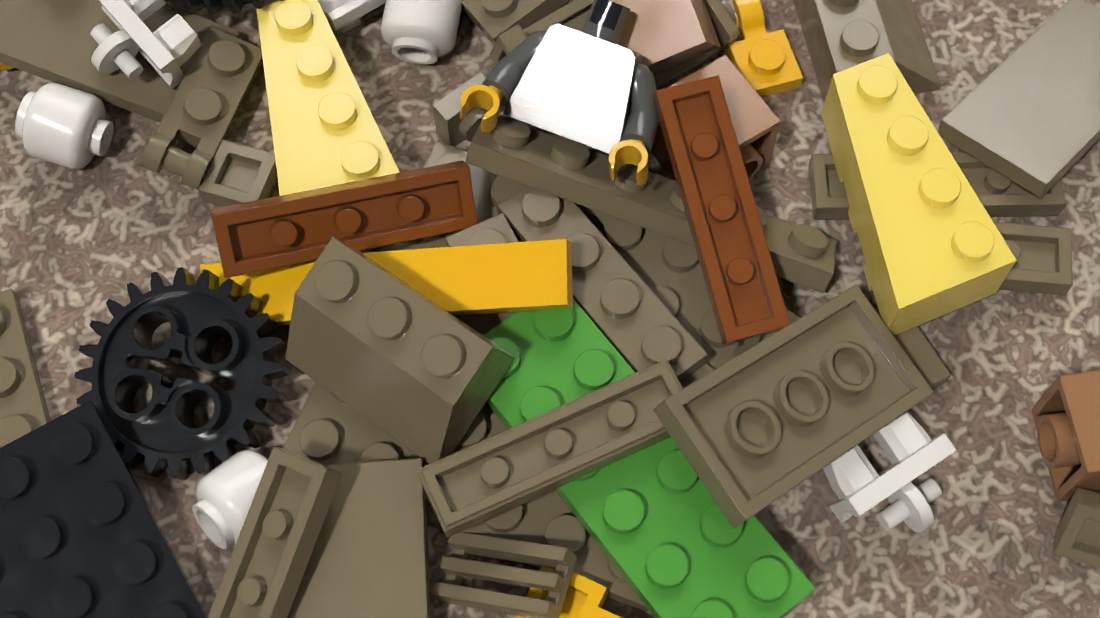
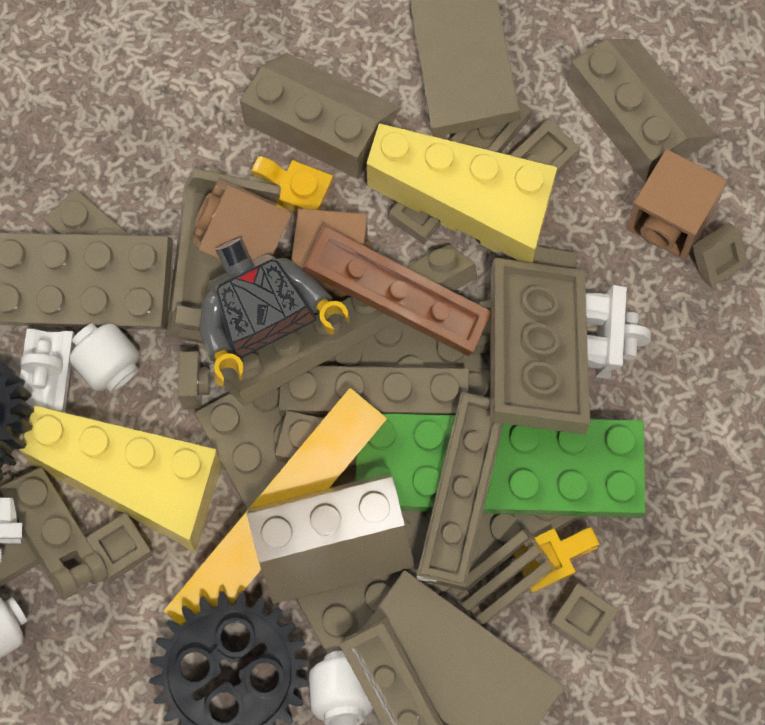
camera: 50 degrees left, 5 degrees up
(358, 213) = (219, 503): dark orange plate -> none

